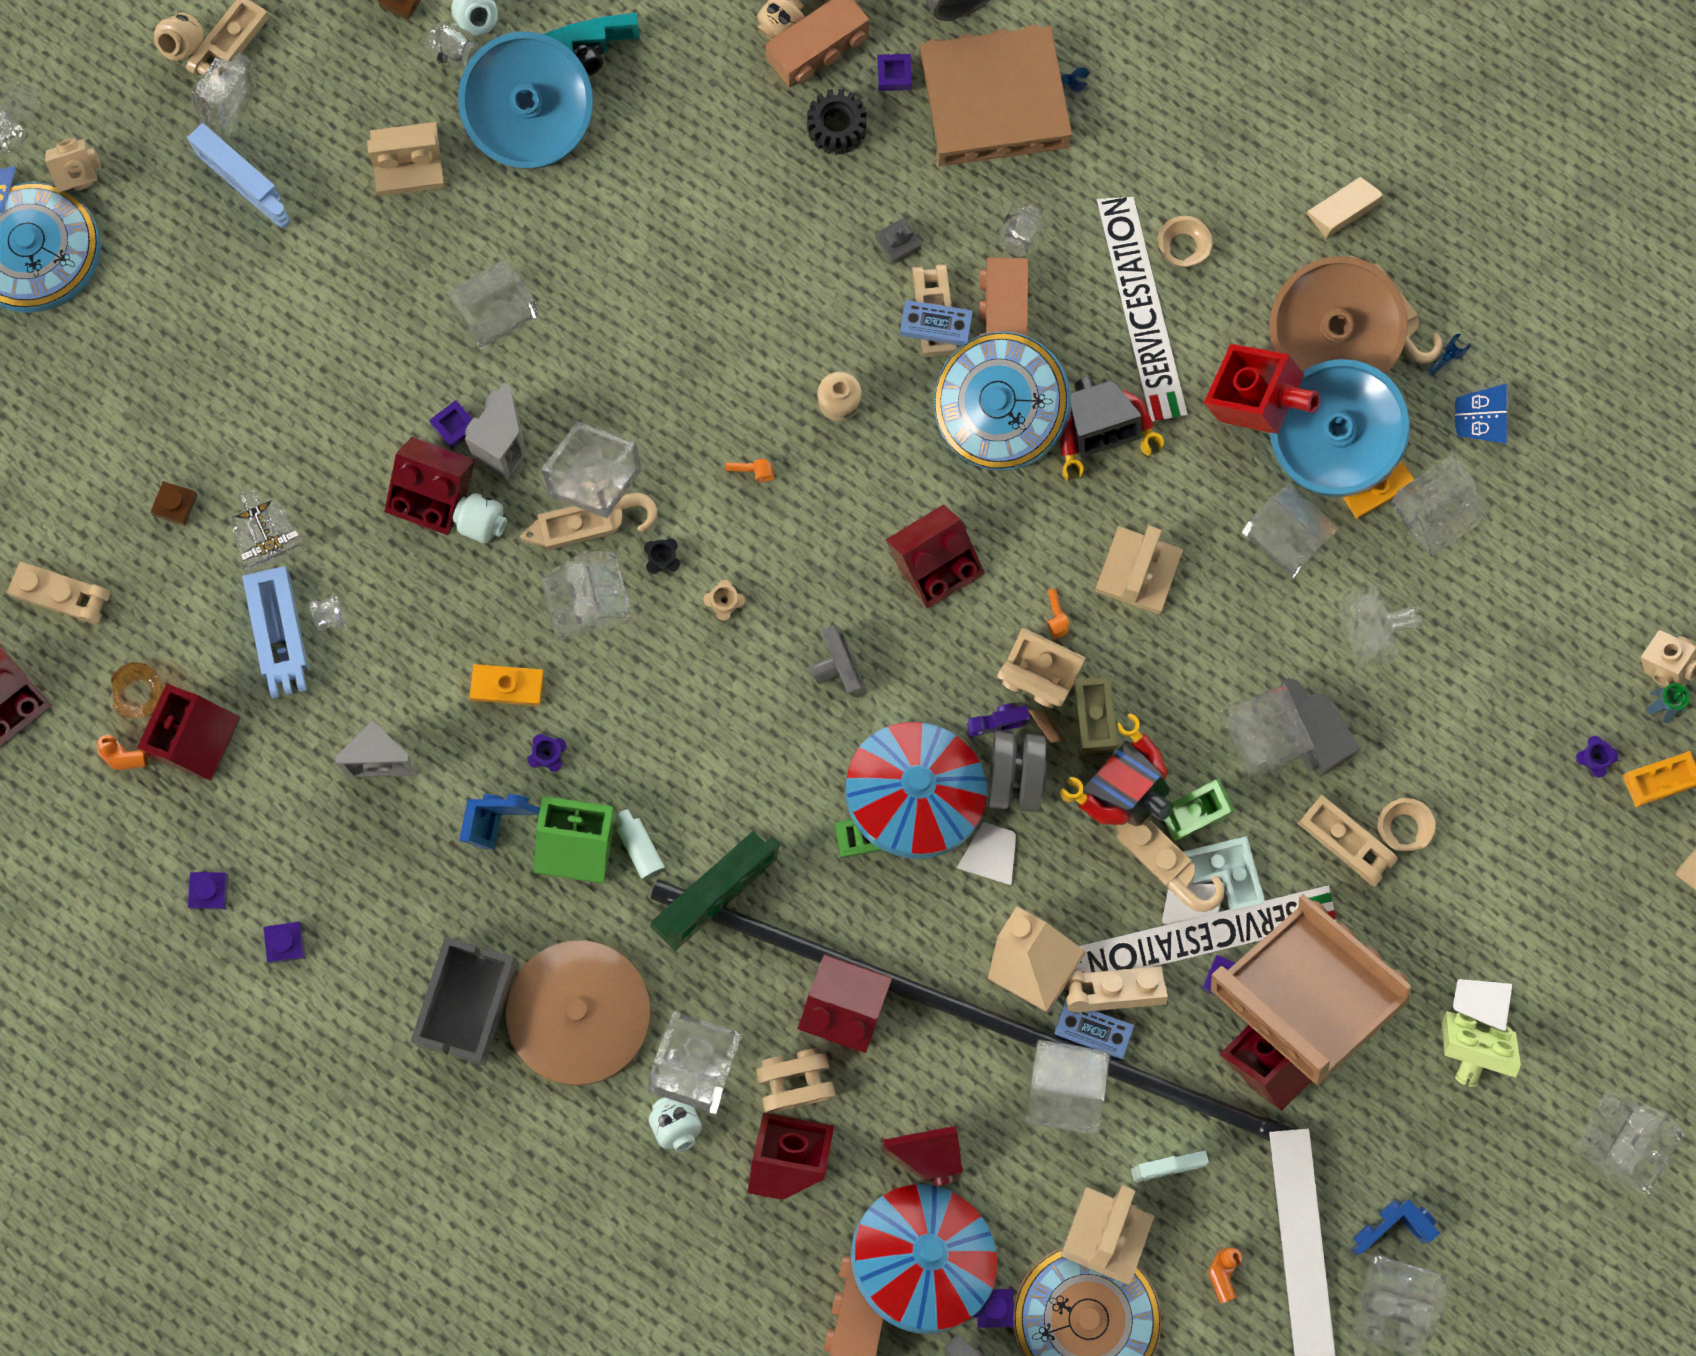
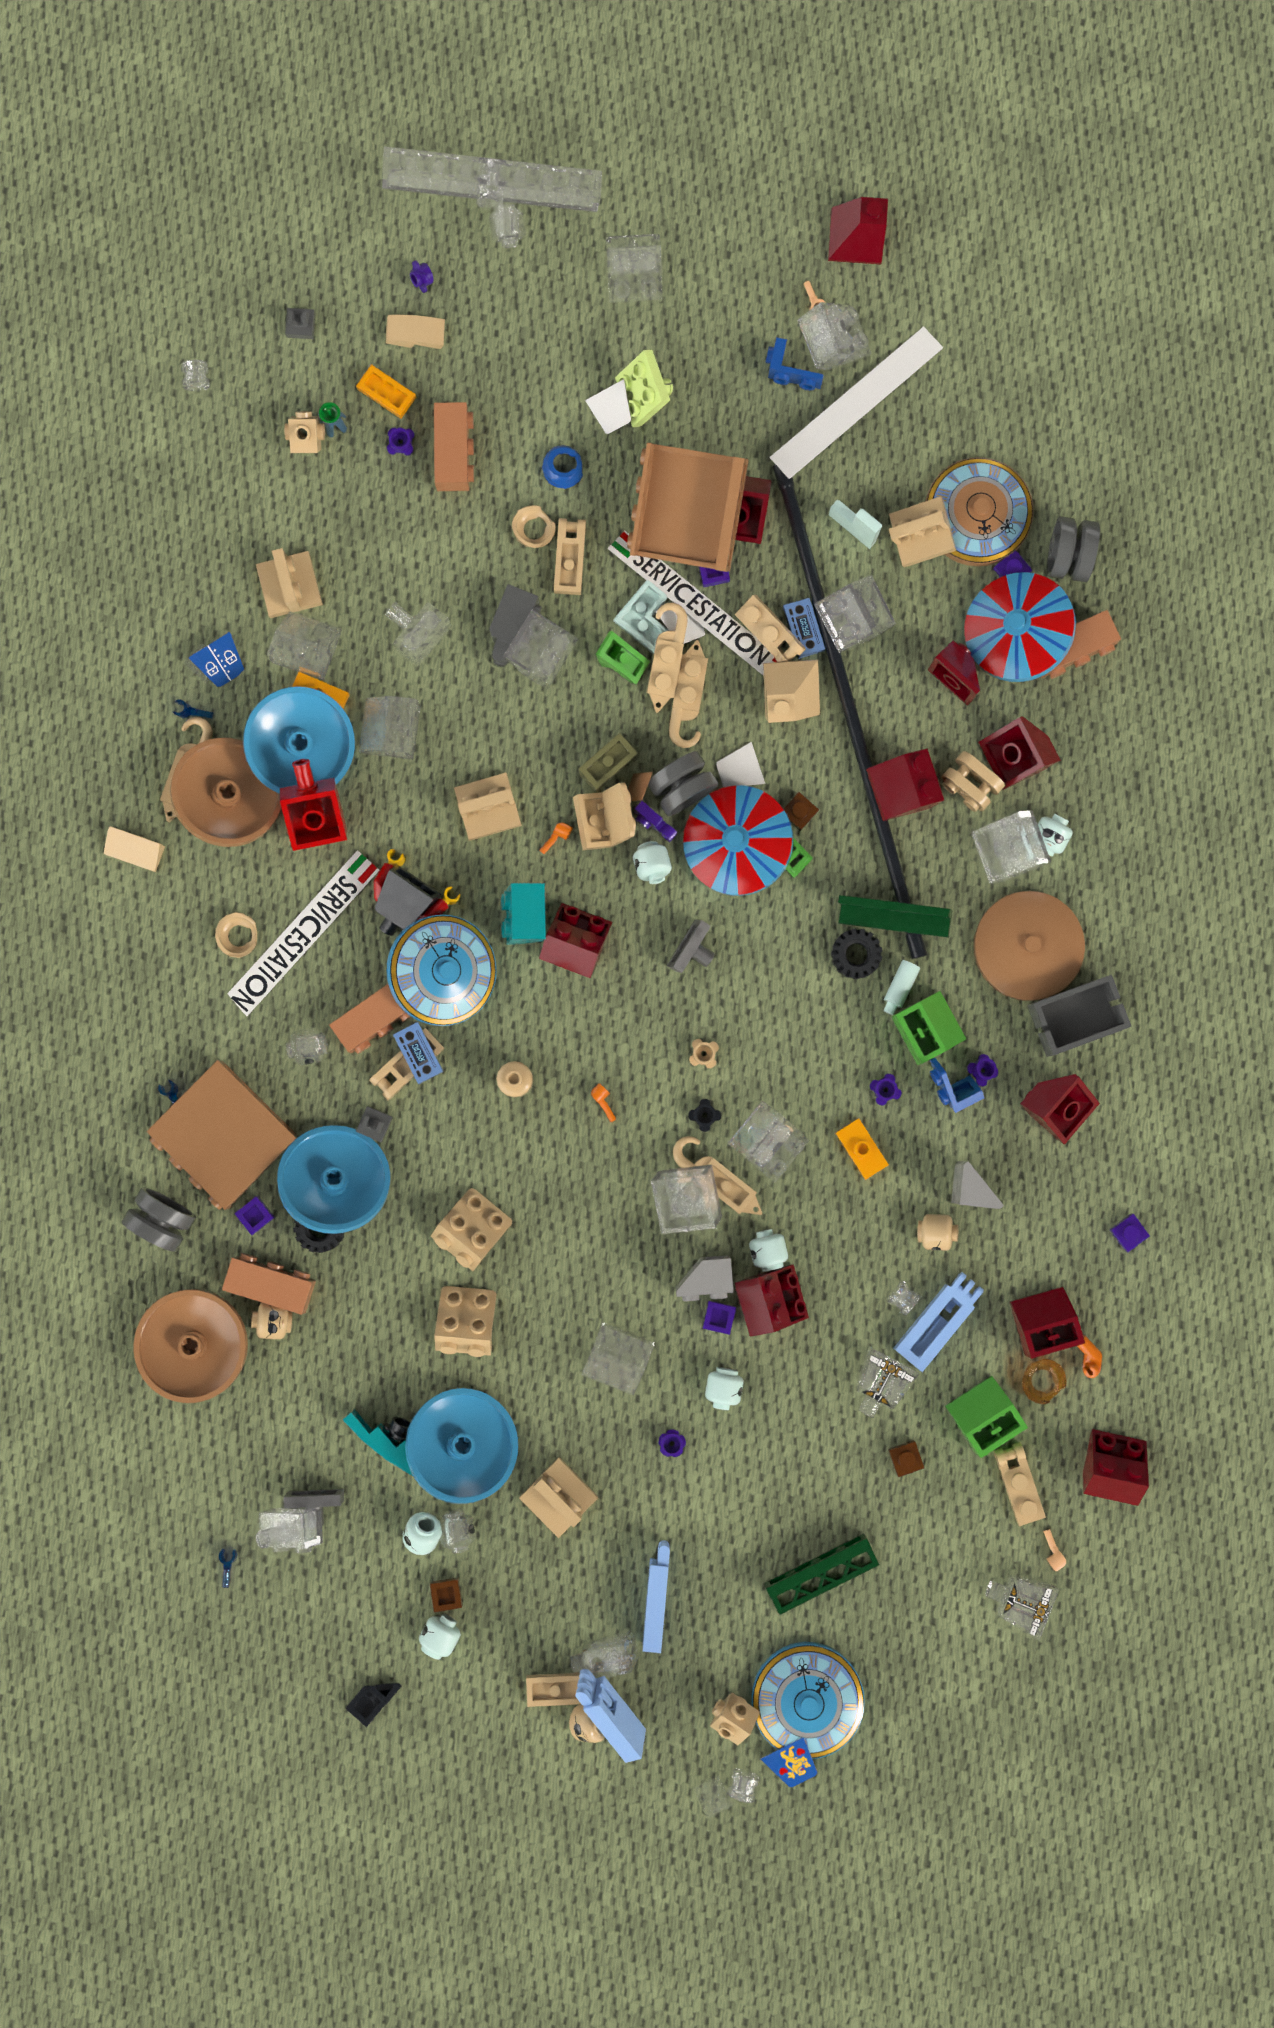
camera: 125 degrees left, 10 degrees up
(142, 346) = (818, 1568): none -> dark green fence
(147, 56) = (611, 1715): none -> light blue hinge
(147, 604) = (986, 1417): none -> bright green slope
(284, 942) = (1124, 1159): dark purple plate -> none
(364, 694) = (937, 1232): none -> tan head
(369, 287) = (677, 1449): none -> dark purple plate
(382, 380) = (724, 1388): none -> light aqua head
(389, 913) = (1060, 1105): none -> dark red slope
(481, 872) = (988, 1065): none -> dark purple plate
(642, 189) = (465, 1321): none -> tan bracket
(707, 804) = (856, 937): none -> black tyre
(725, 257) = (471, 1229): none -> tan bracket
(872, 160) = (333, 1179): none -> dark azure dish
(900, 879) = (800, 811): none -> reddish brown plate
(958, 687) = (652, 862): none -> light aqua head
(999, 517) = (524, 913): none -> teal slope
(1111, 858) = (688, 693): none -> tan plate
(1128, 785) = (638, 710): torso -> none
(1221, 1272) = (892, 453): orange arm -> none
(1434, 899) = (557, 478): none -> blue piece
(1459, 1318) = (813, 298): none -> light nougat hand
(1518, 539) = (288, 583): none -> tan bracket
(1553, 803) = (453, 446): none -> nougat brick

